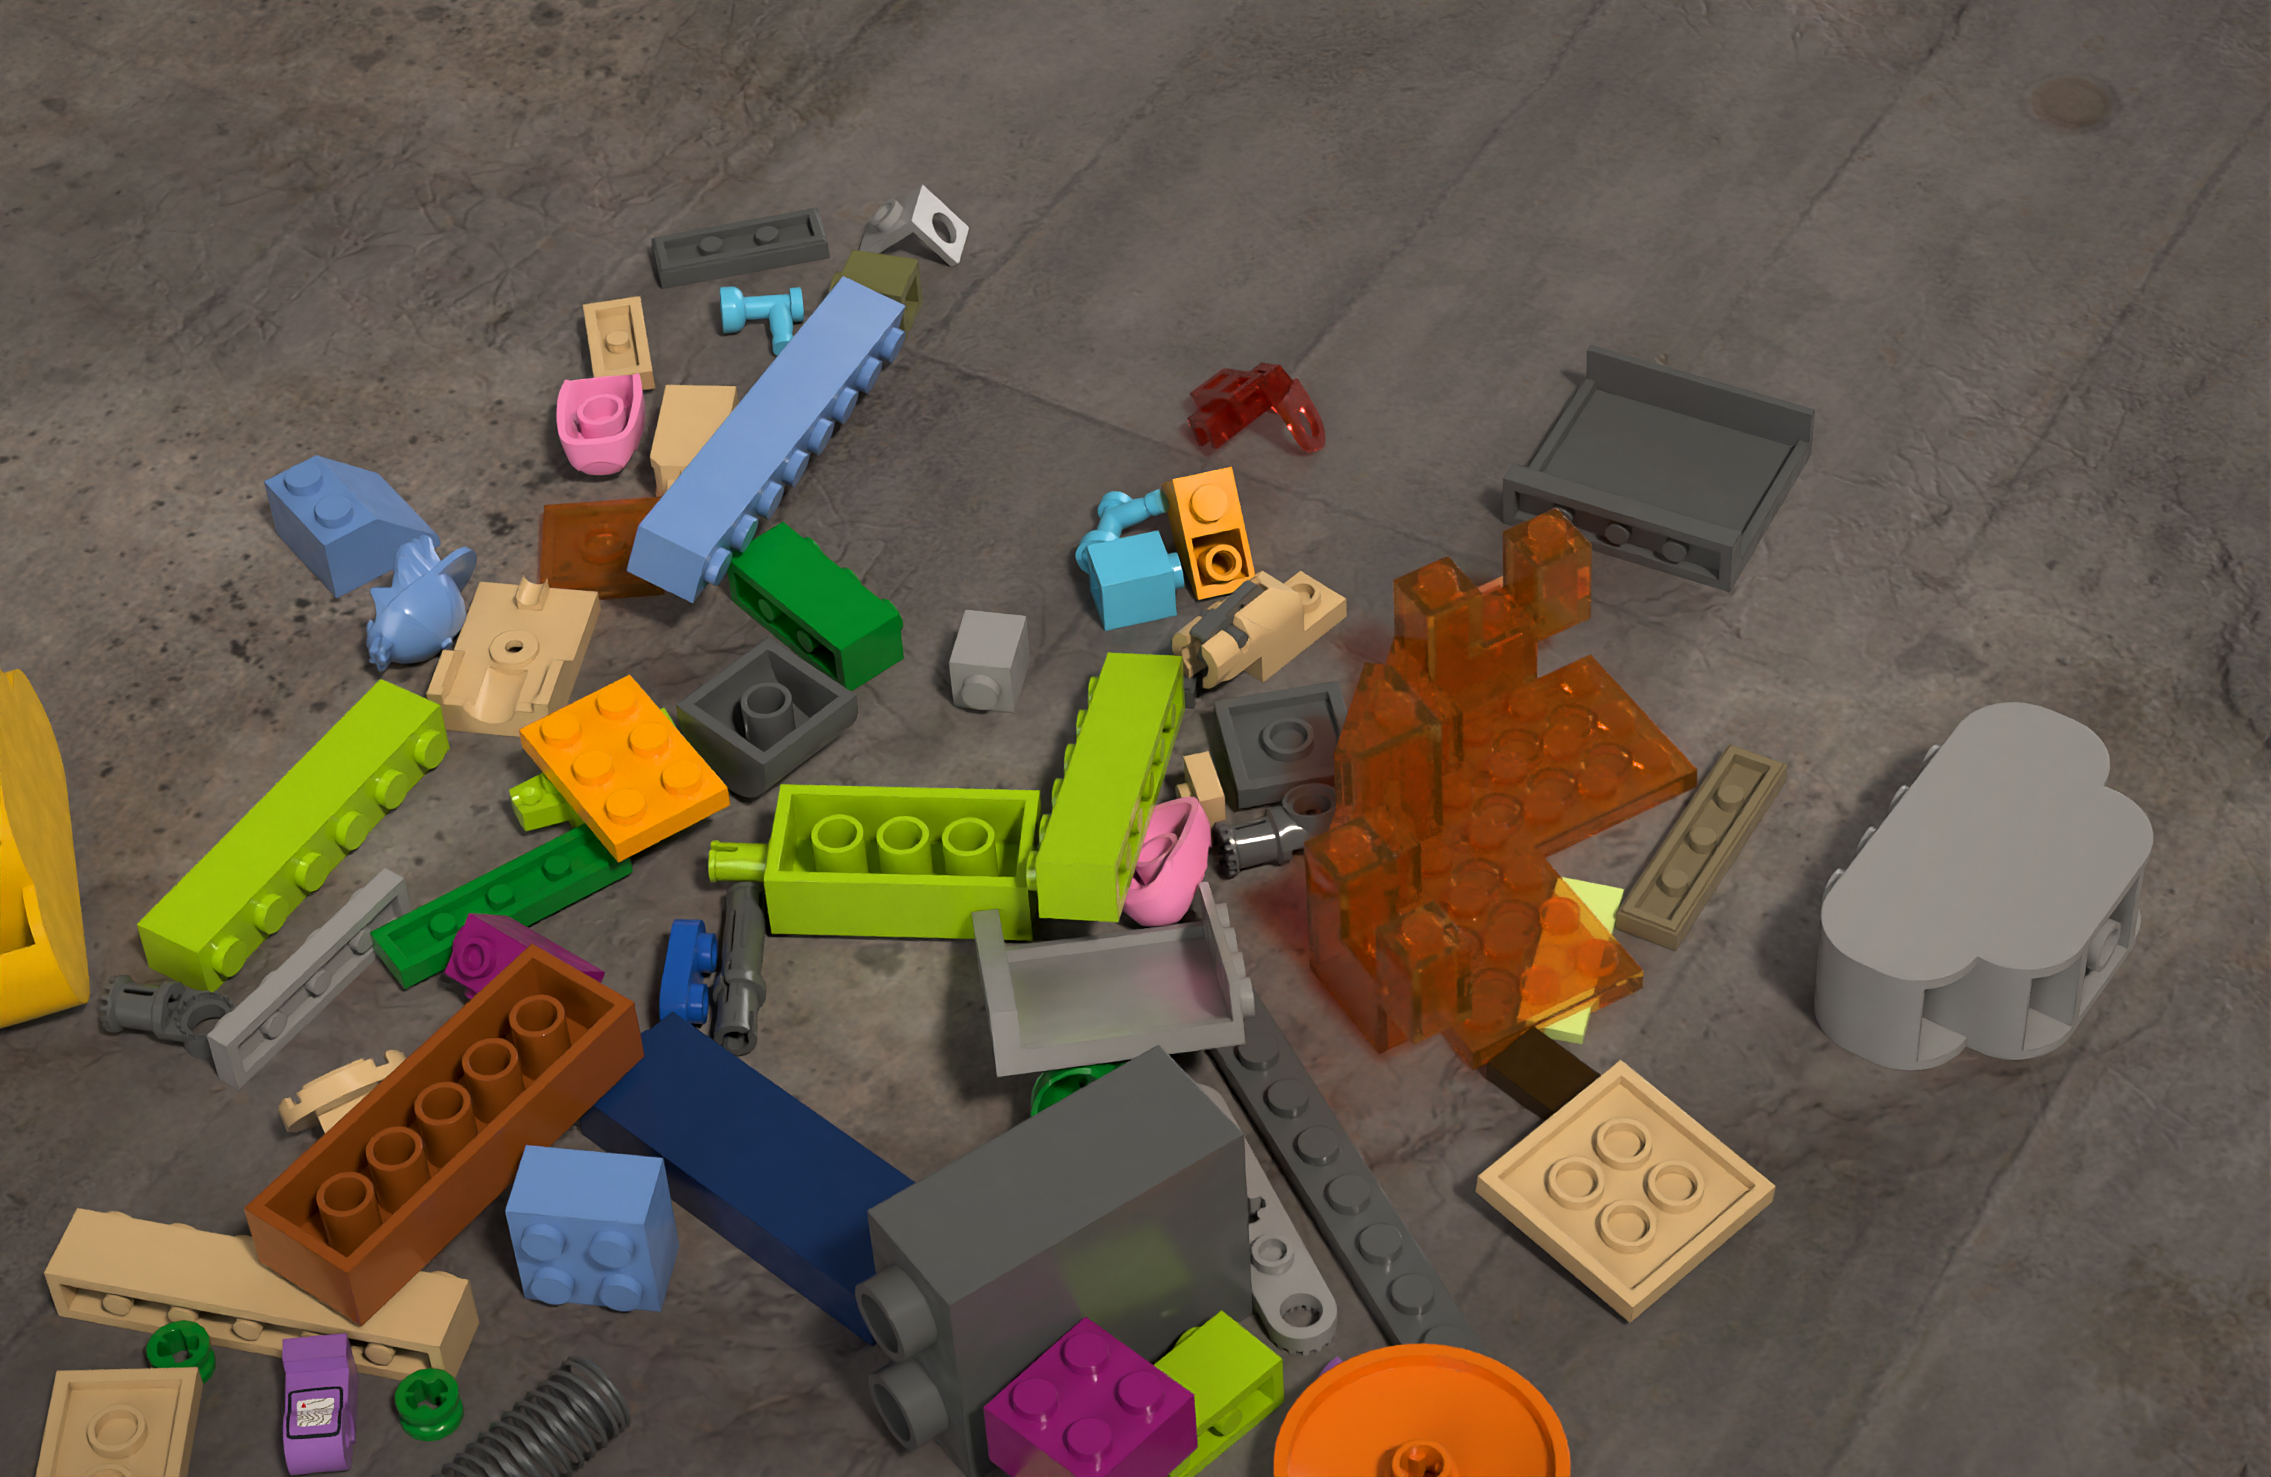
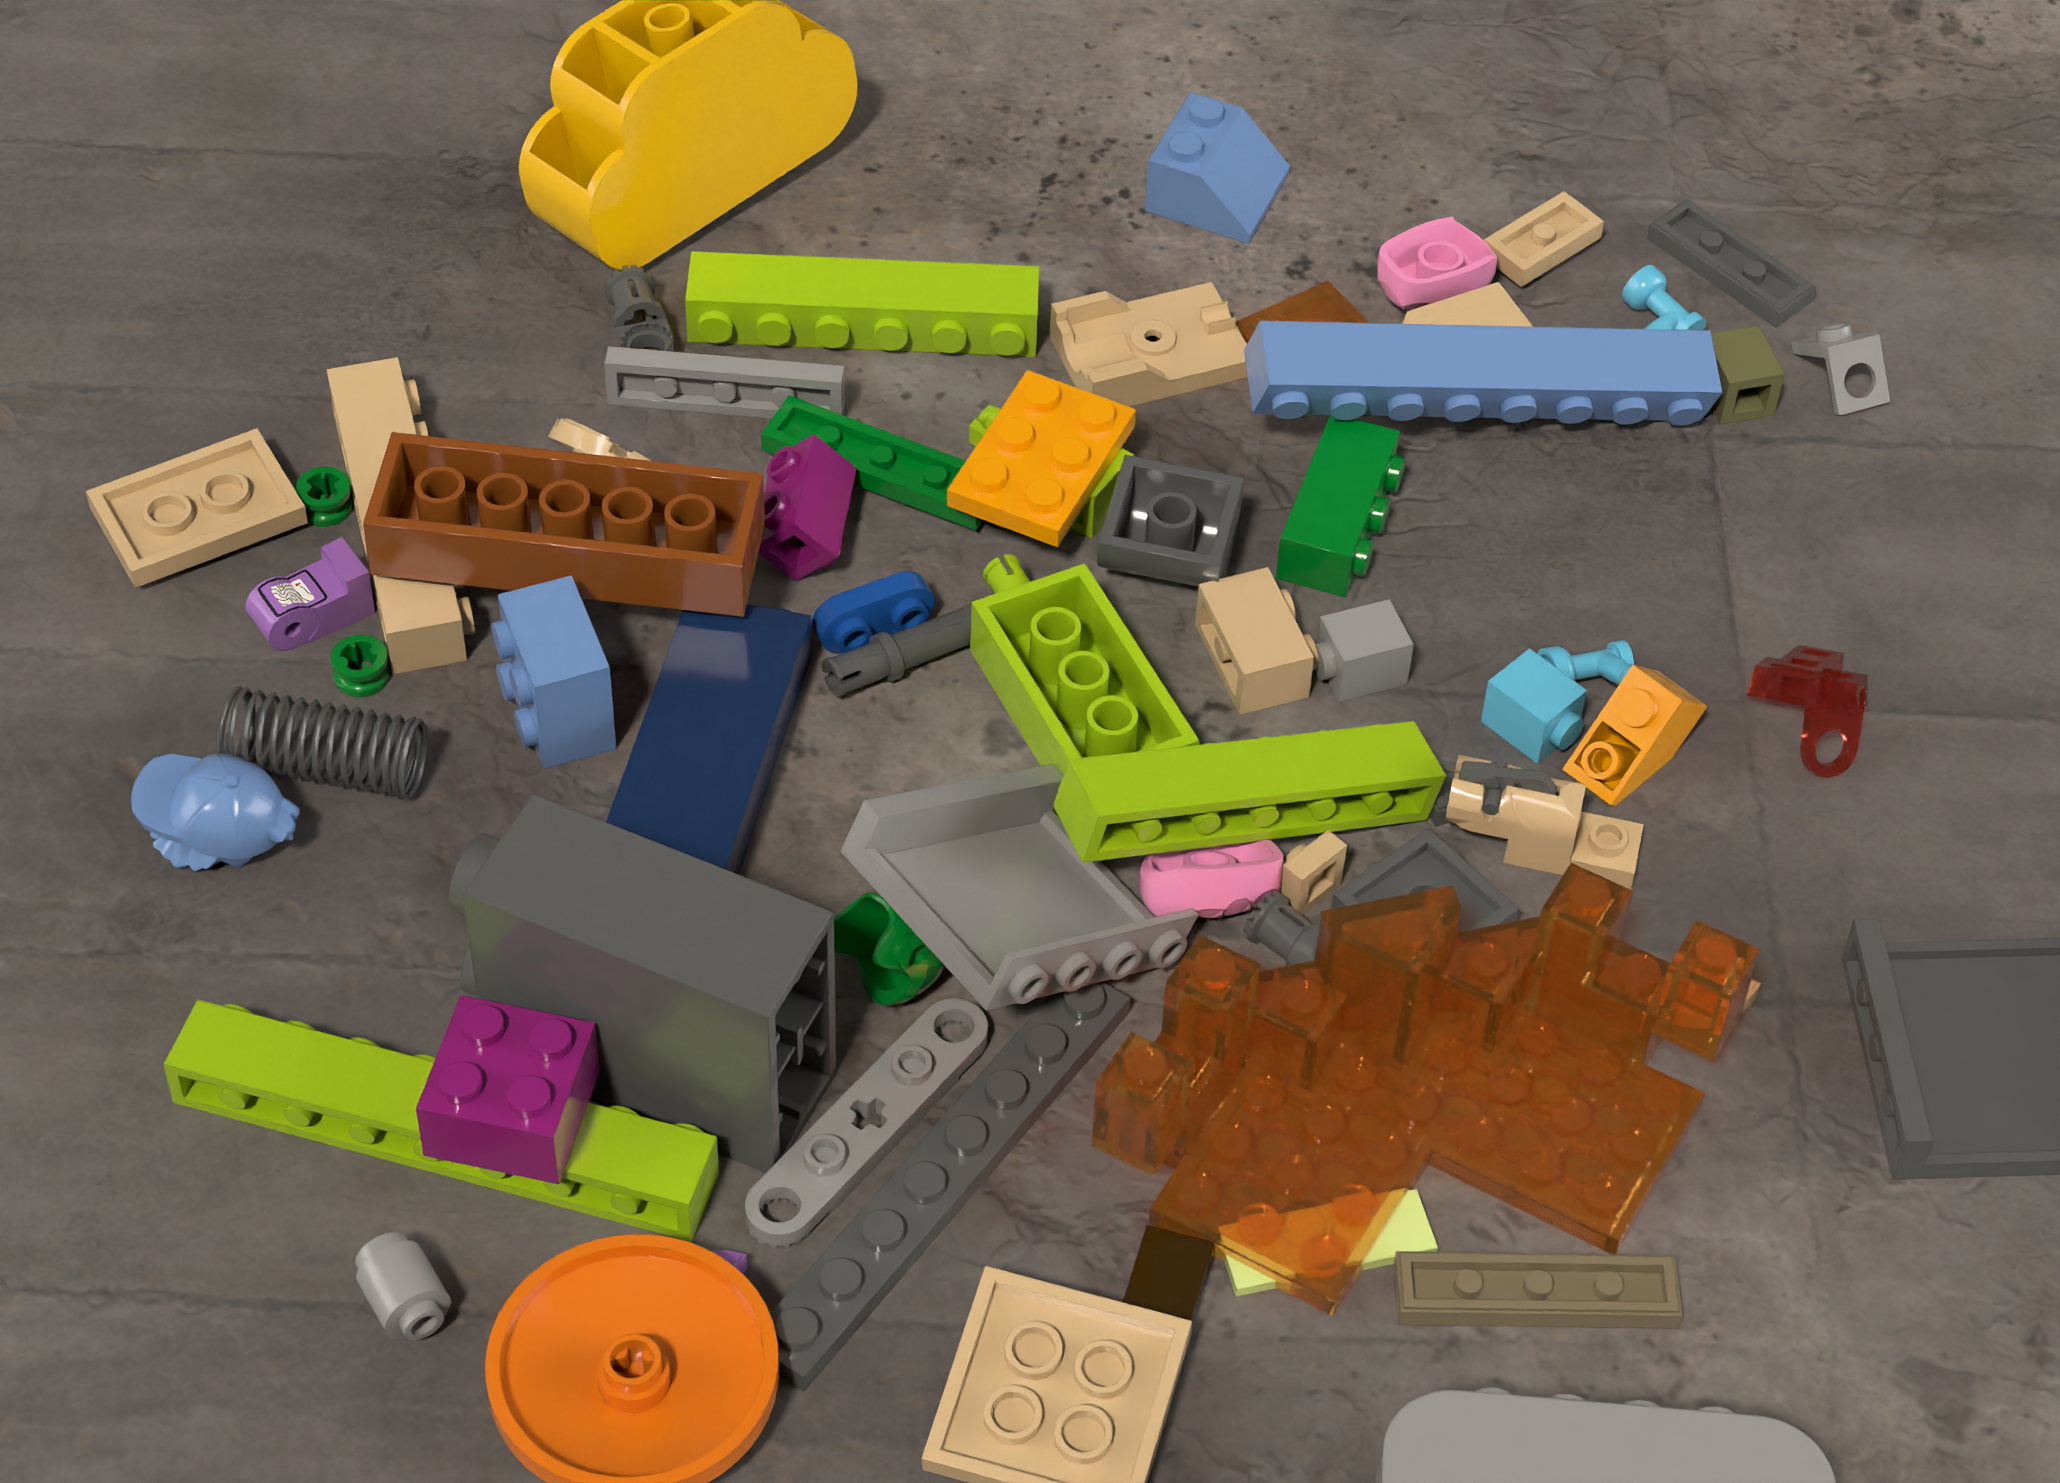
camera: 55 degrees right, 5 degrees up
(421, 607) = (1144, 250): medium blue hair -> none
(922, 728) = (1255, 640): none -> tan brick

